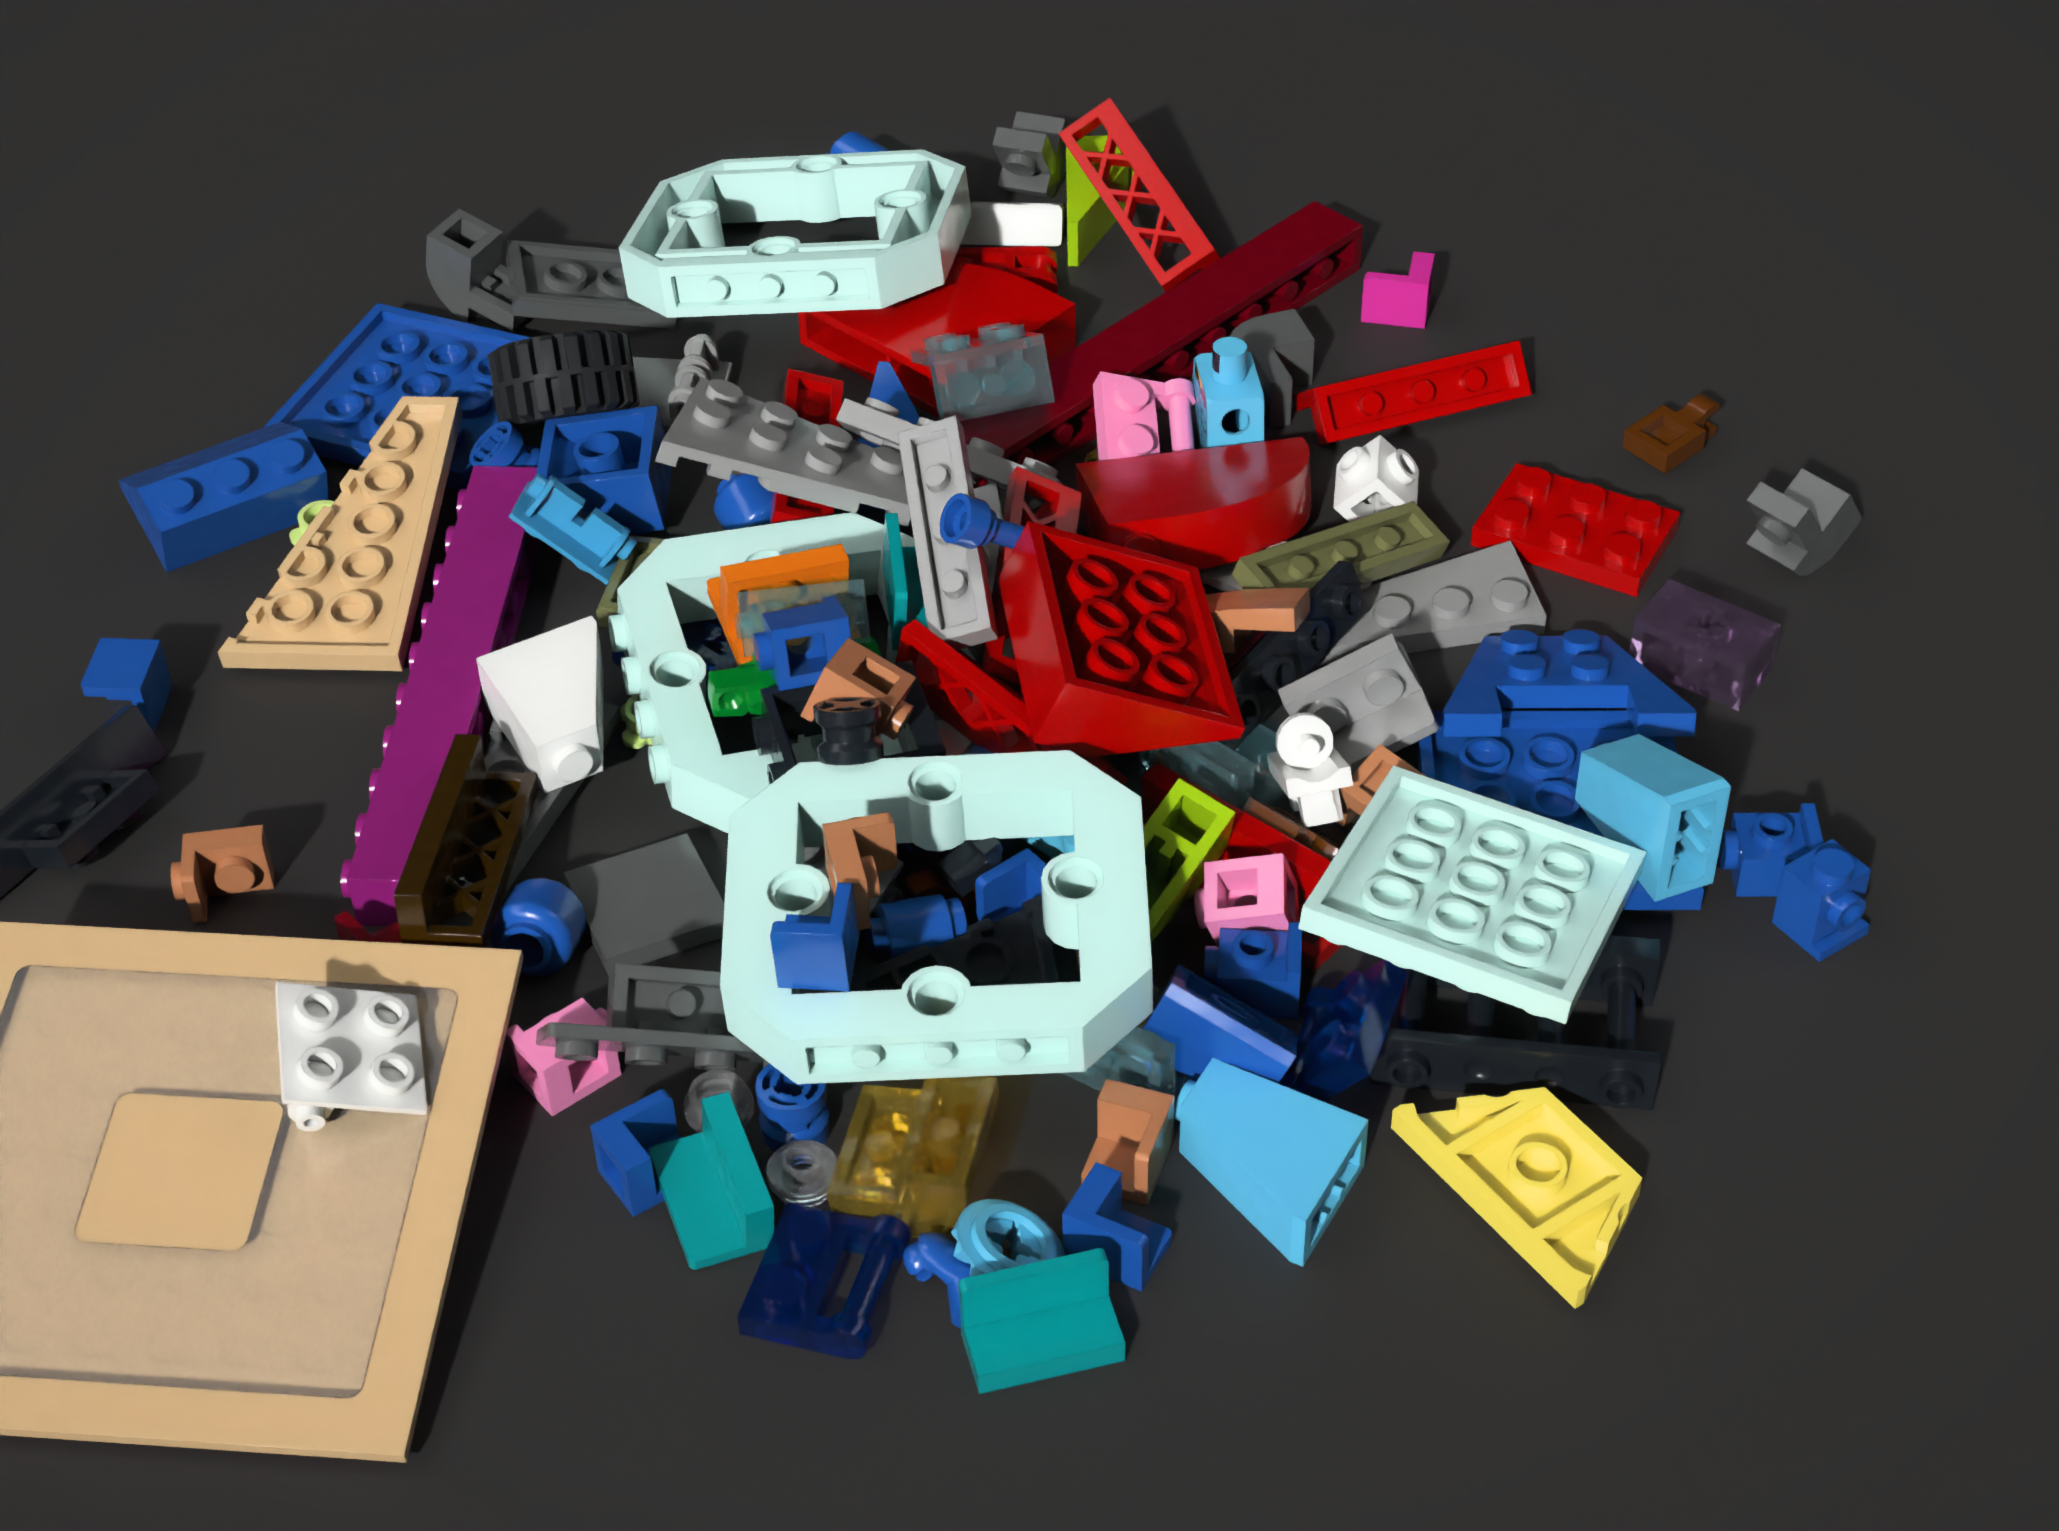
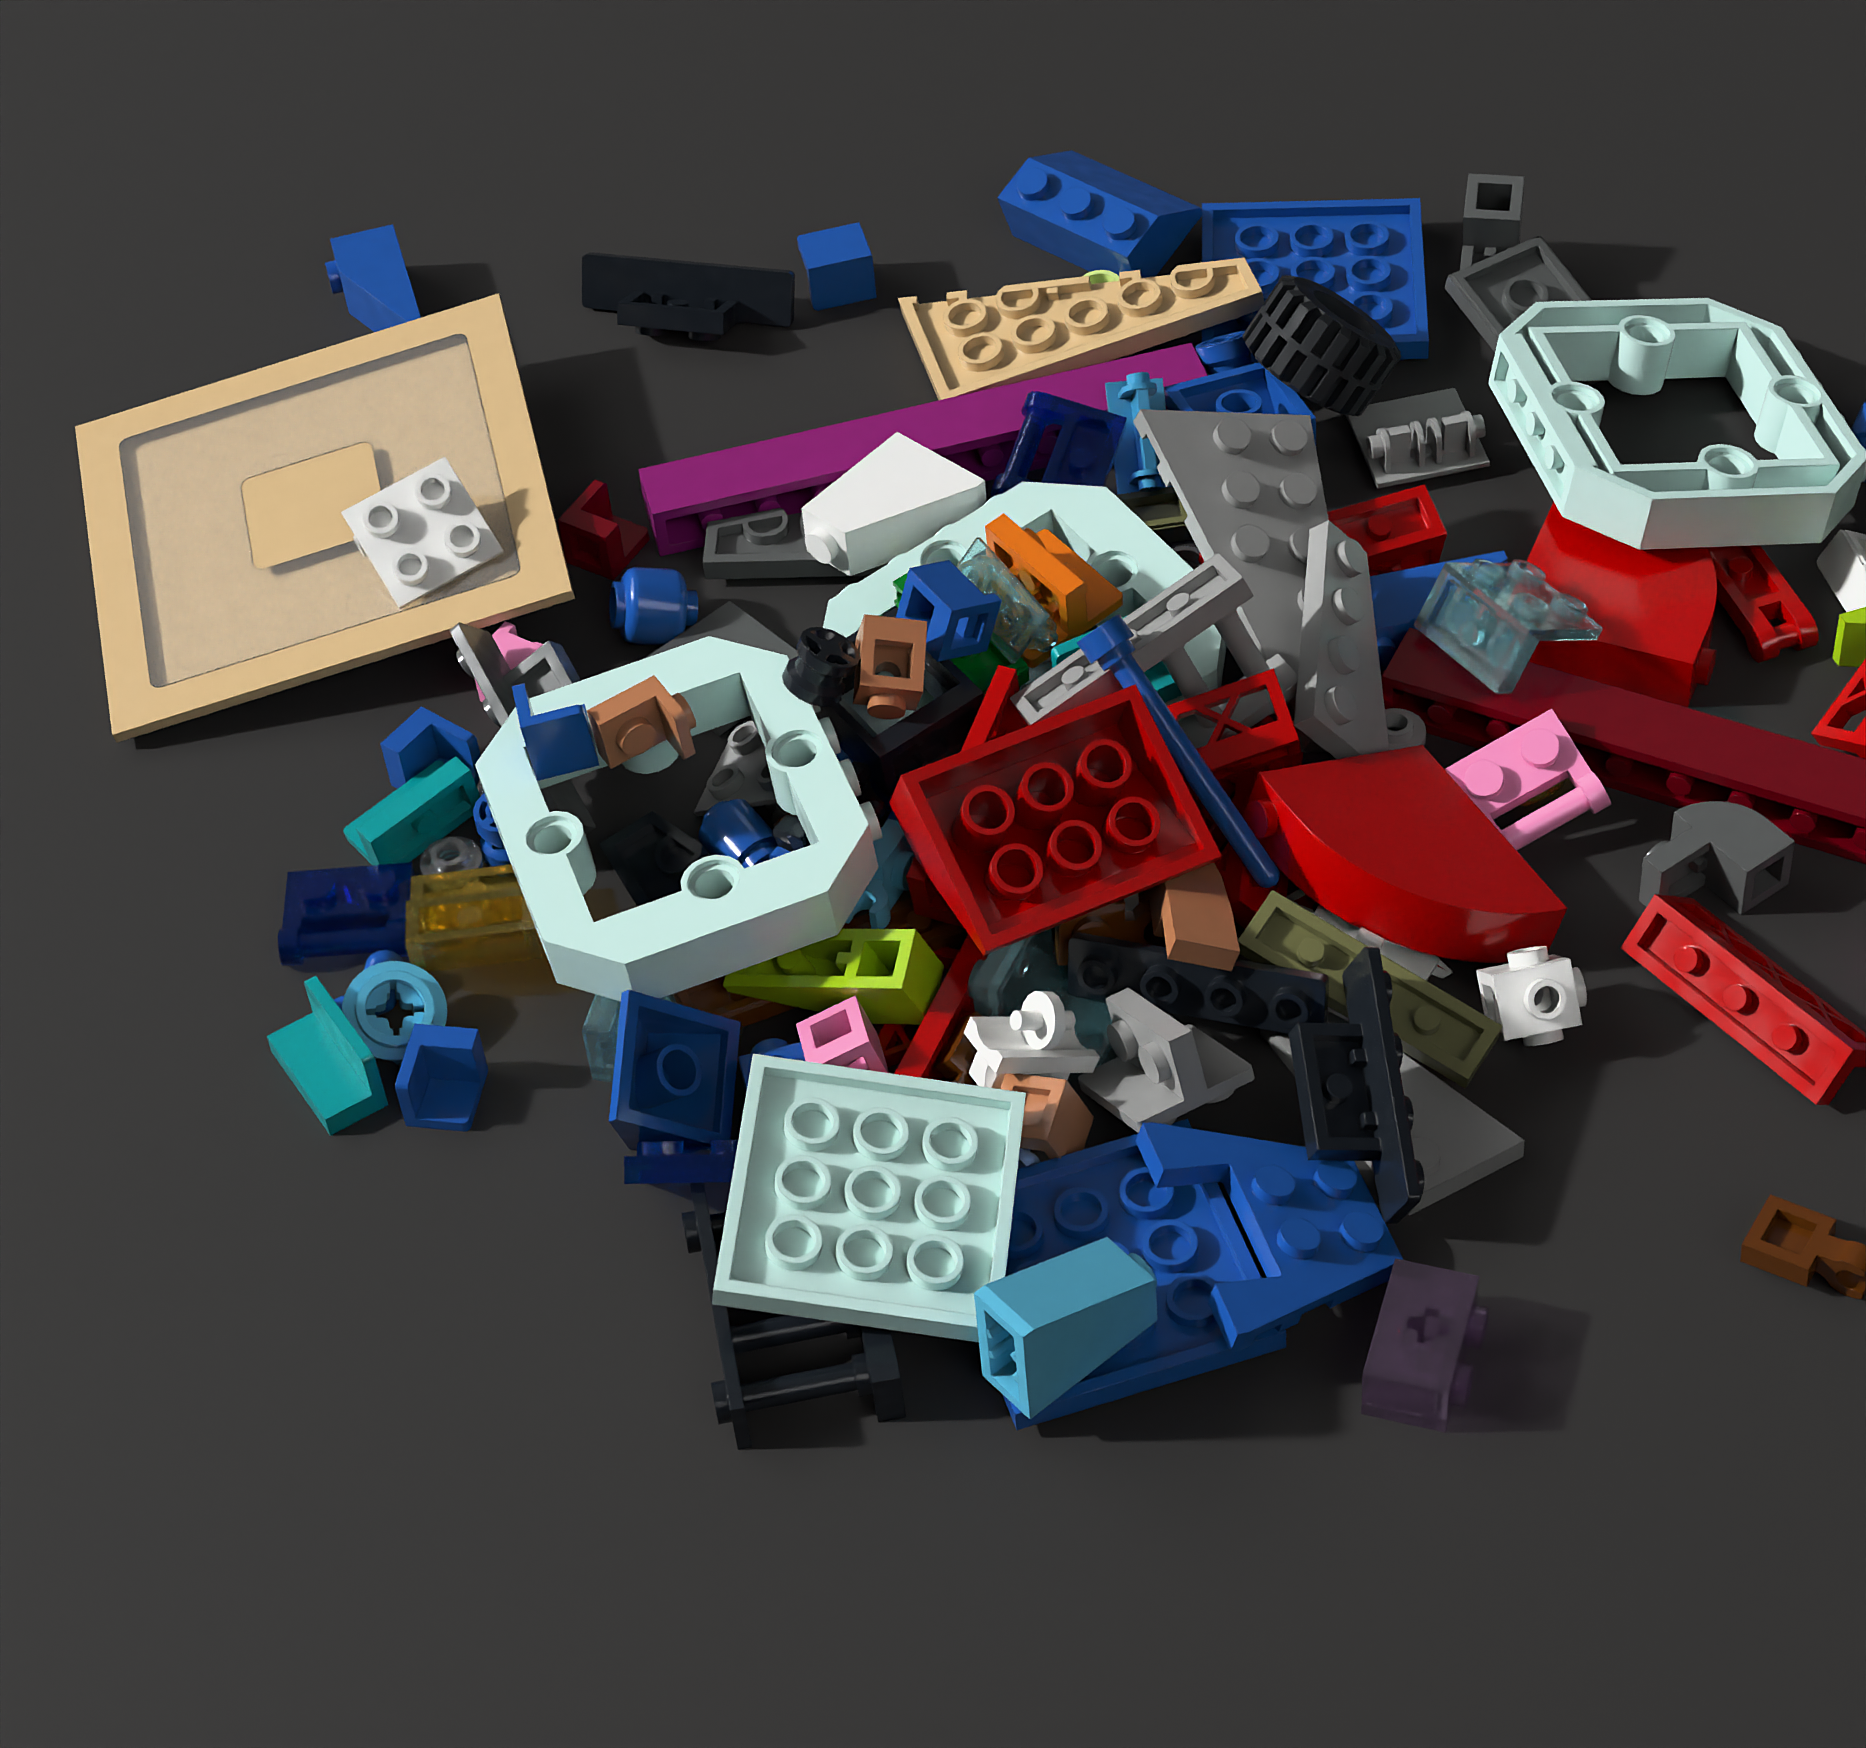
camera: 75 degrees right, 5 degrees up
(221, 865) = (647, 397): nougat bracket -> none
(445, 853) = (685, 506): dark brown fence -> none
(571, 563) = (1081, 452): none -> clear blue plate
(1133, 1136) = (547, 1069): nougat panel -> none
(1227, 390) = (1588, 837): medium azure torso -> none
(1271, 1152) = (548, 1165): medium azure slope -> none
(1457, 579) = (1354, 1088): none -> black bracket
(1532, 1178) = (591, 1363): light yellow wing -> none
(1577, 528) = (1591, 1200): red plate -> none
(1763, 844) = (1110, 1470): blue brick -> none
(1803, 523) = (1675, 1400): dark grey brick -> none
(1823, 900) = (1045, 1522): blue brick -> none

